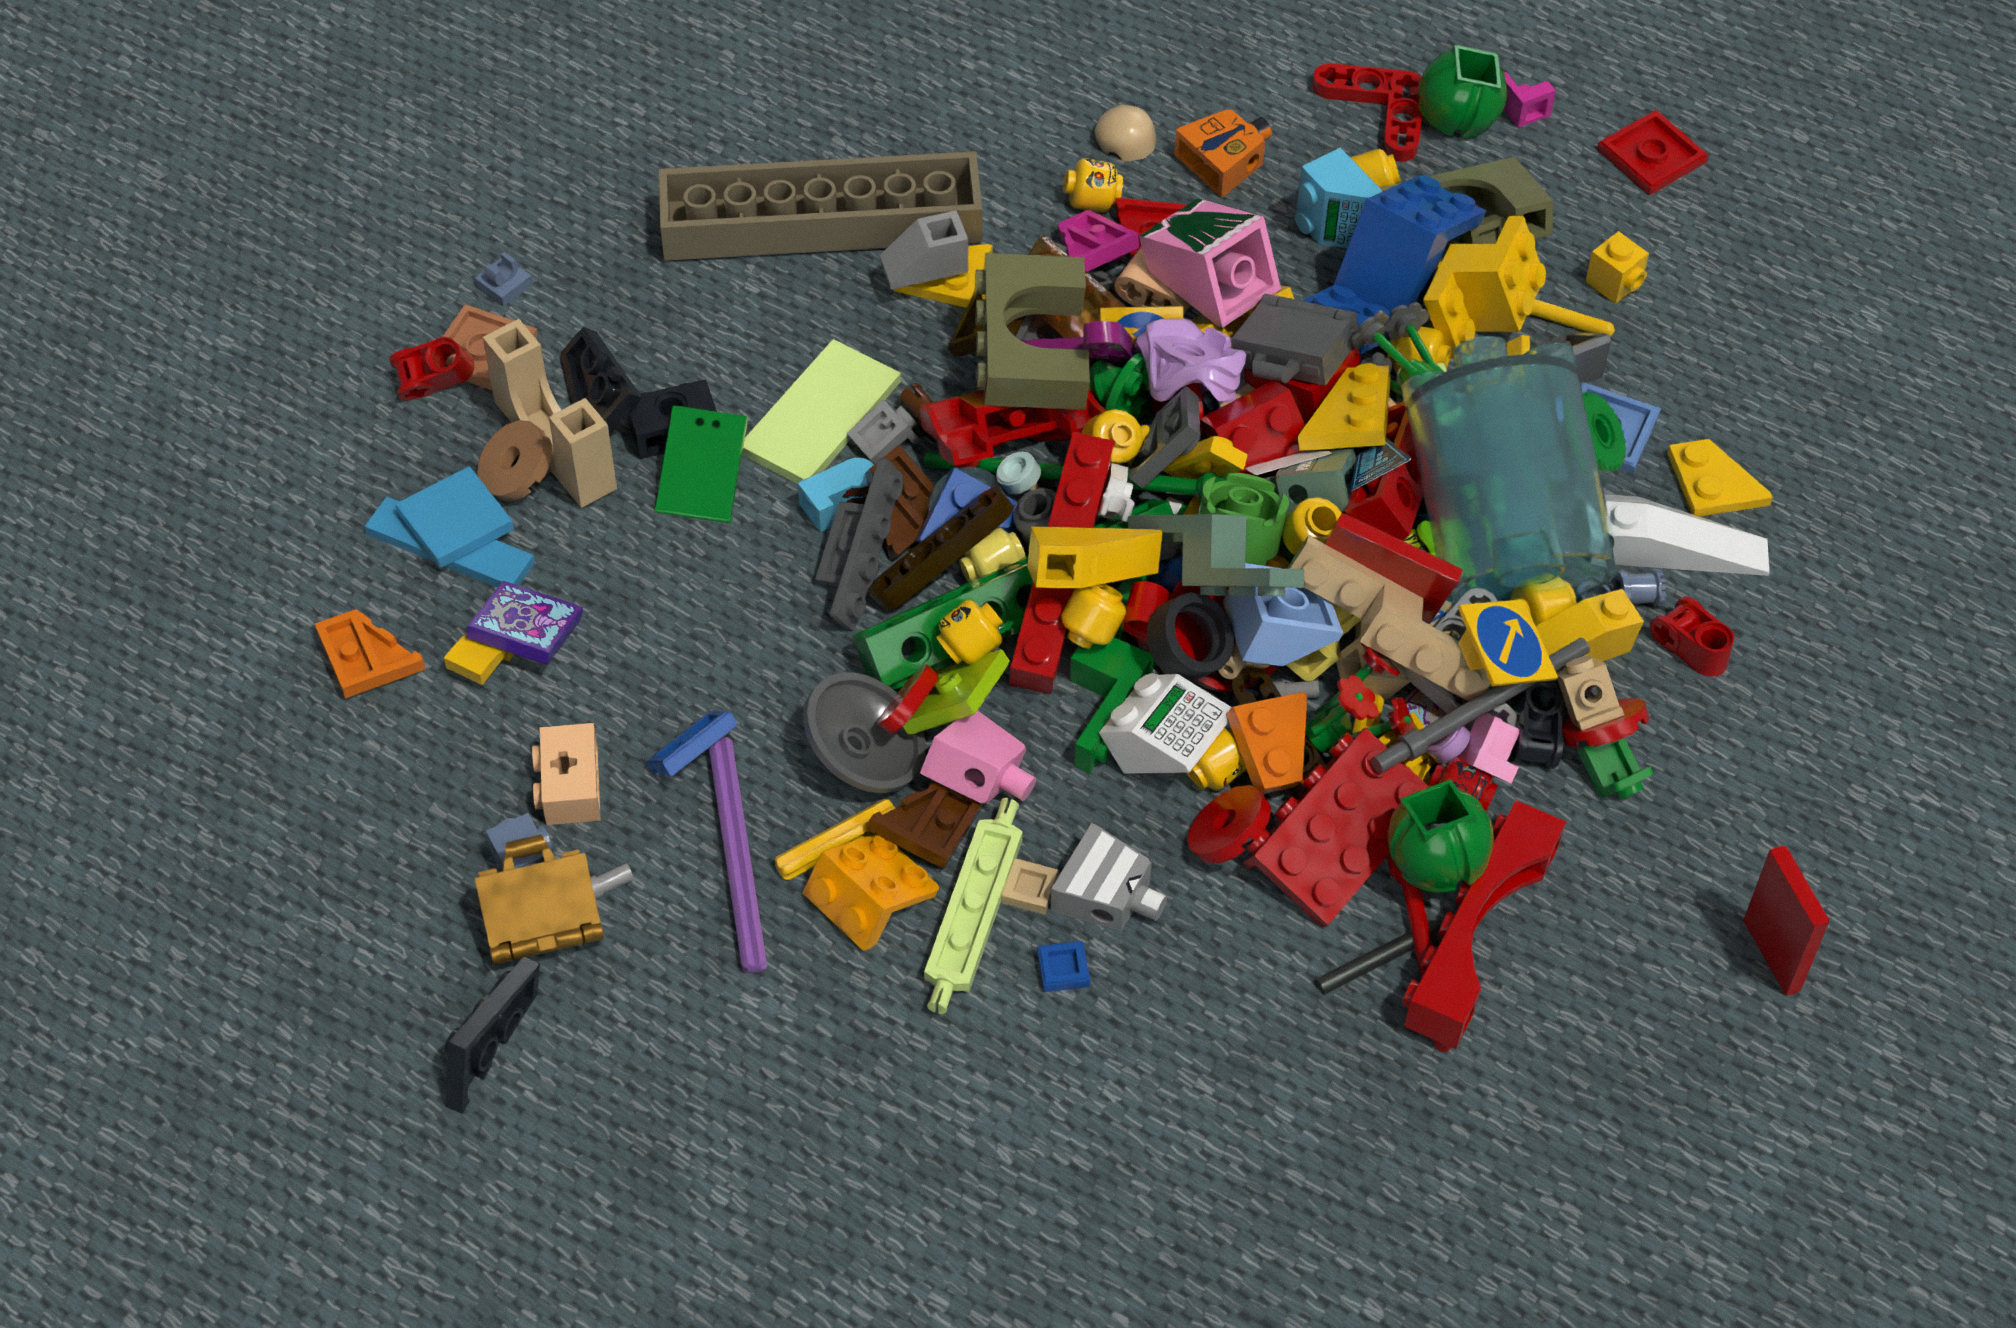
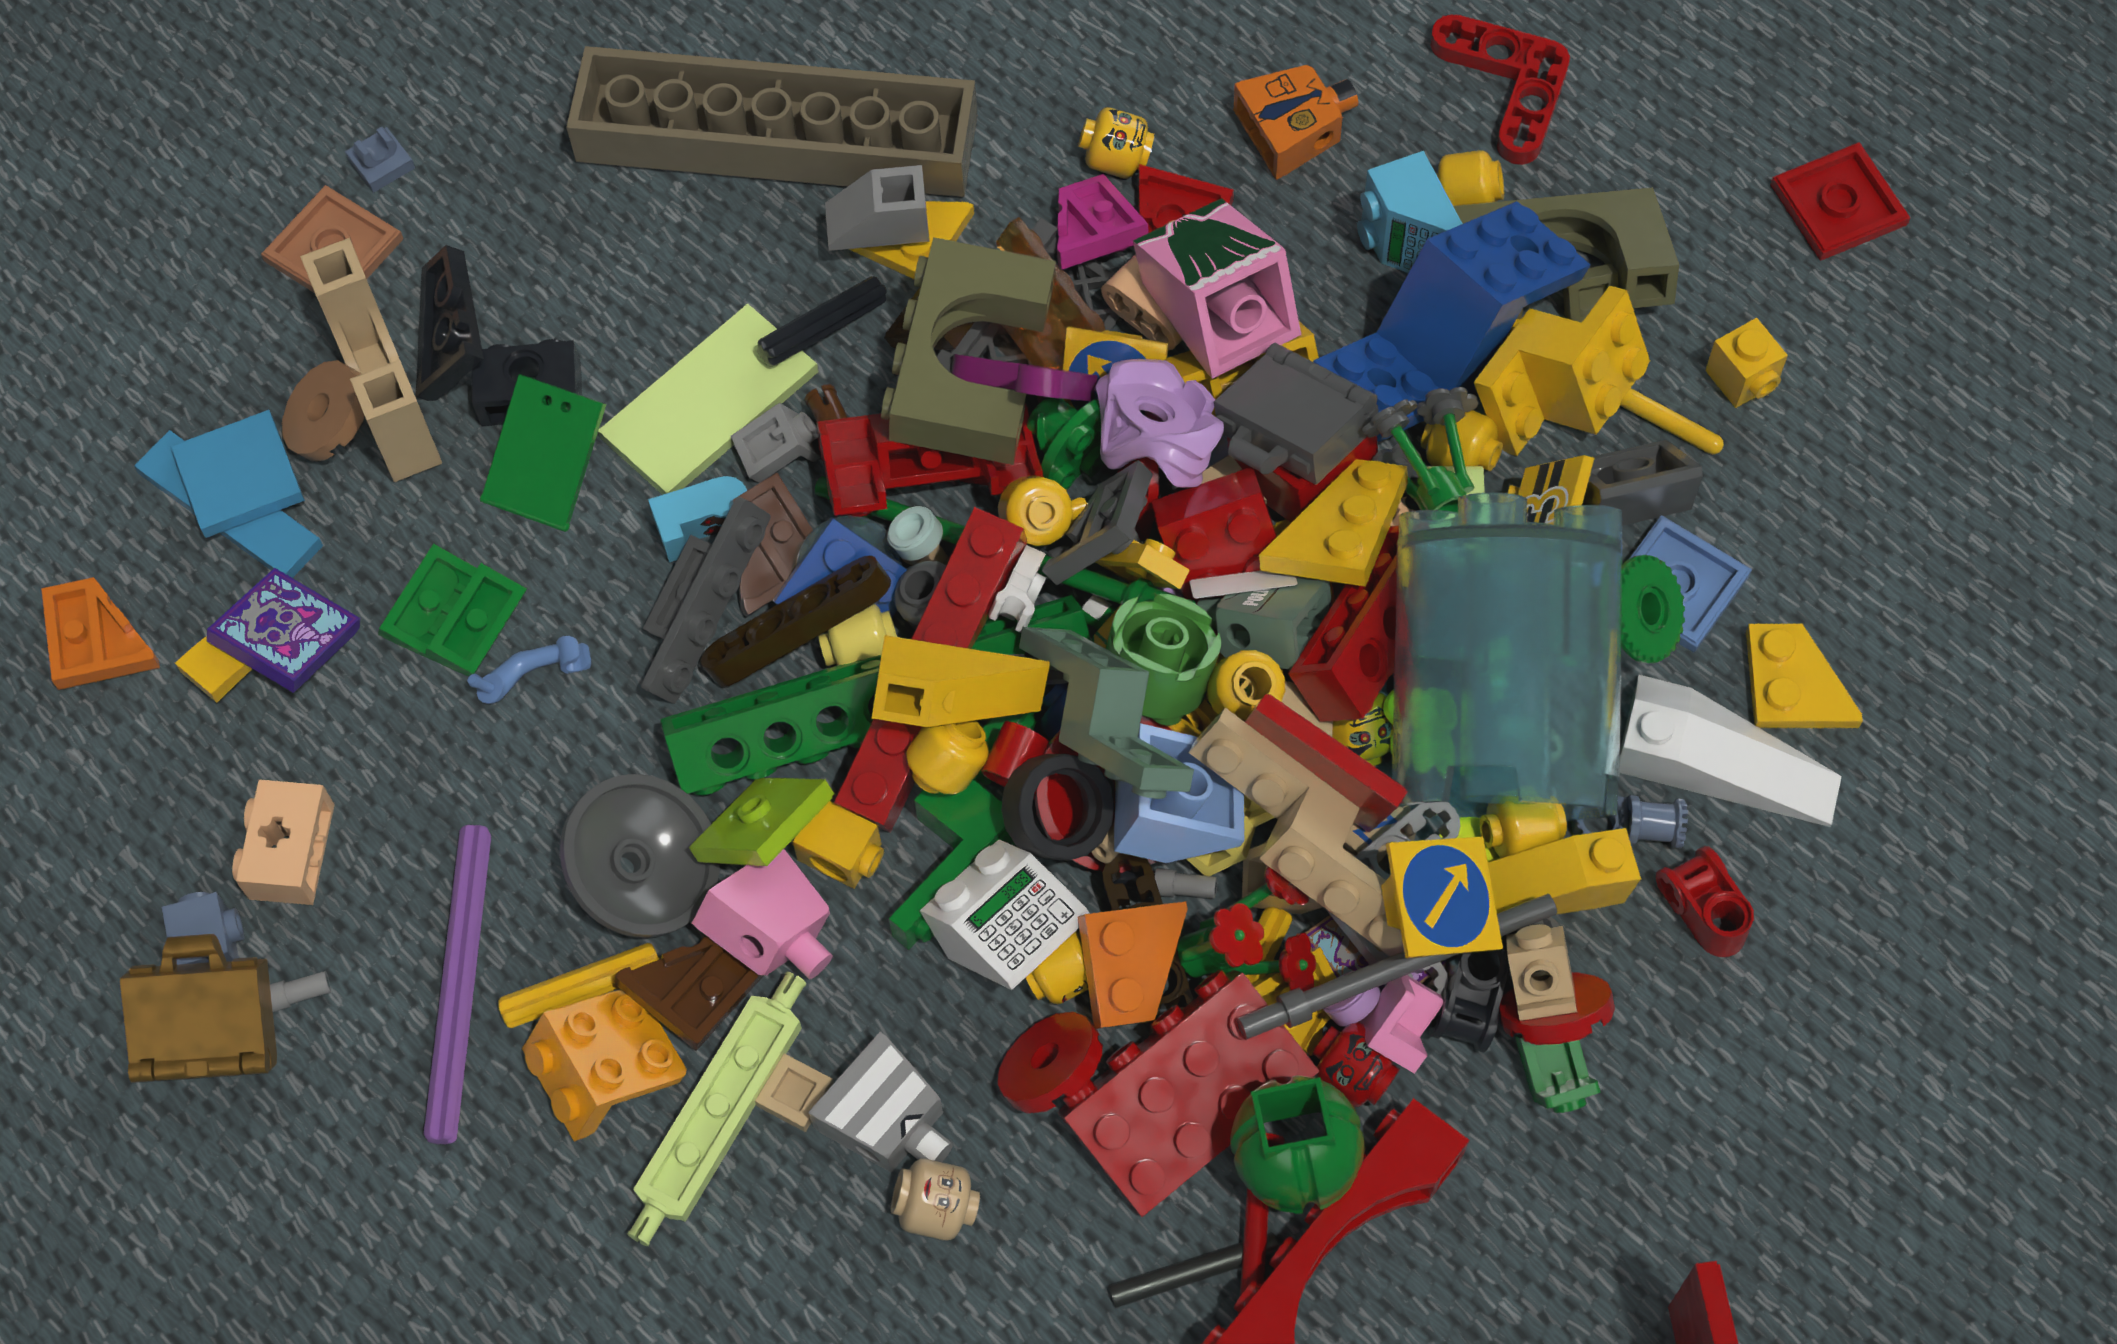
camera: 15 degrees right, 10 degrees up
(423, 369) = (252, 269): red piece -> none
(494, 1019) = (89, 1179): black wing -> none
(656, 592) = (452, 611): none -> green slope
(691, 743) = (438, 826): blue tile -> none
(757, 604) = (497, 684): none -> medium blue piece
(897, 341) = (821, 321): none -> black axle
(908, 699) = (702, 821): red tile -> none
(970, 632) = (794, 747): yellow head -> none
(1019, 703) = (840, 845): none -> yellow brick
(1063, 966) = (807, 1209): blue tile -> none
(1126, 132) = (1179, 73): tan hair -> none
(1164, 938) = (934, 1199): none -> tan head
(1375, 462) = (1346, 611): sticker -> none
(1463, 91) = (1605, 103): green piece -> none
(1528, 103) = (1691, 104): dark pink panel -> none

